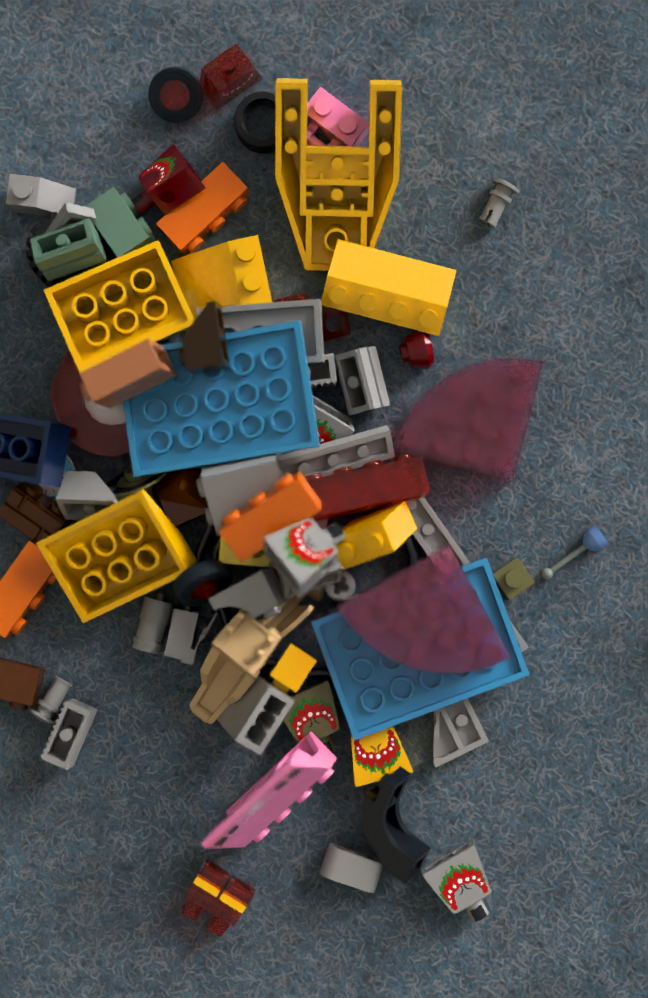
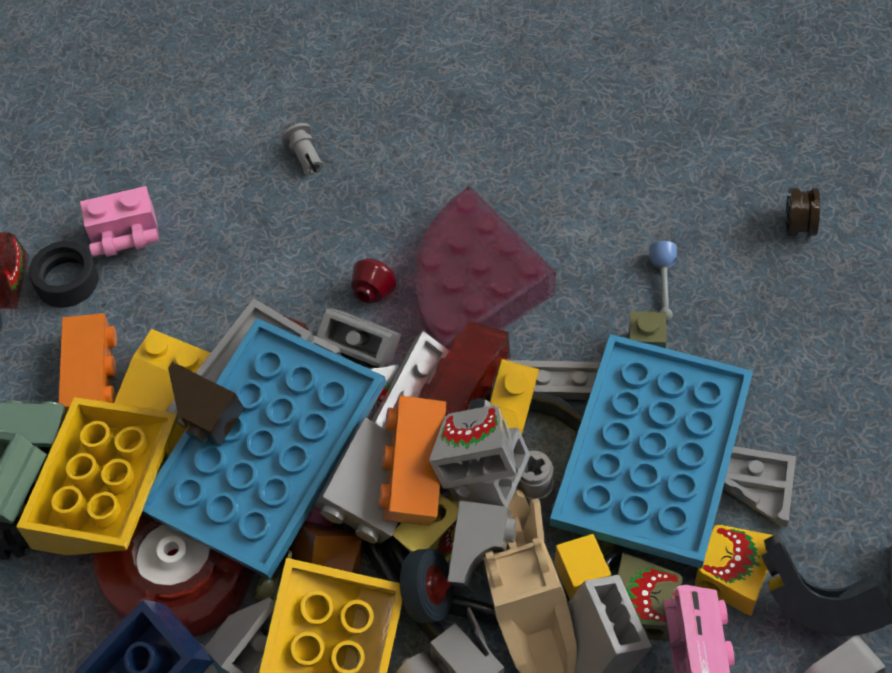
camera: 50 degrees left, 30 degrees down
(127, 374) = (165, 489): nougat brick -> none
(167, 183) = (35, 367): dark red torso -> none
(336, 188) = (176, 245): yellow wedge -> none
(388, 287) = (299, 262): yellow slope -> none
(427, 617) = (628, 408): clear pink brick -> none

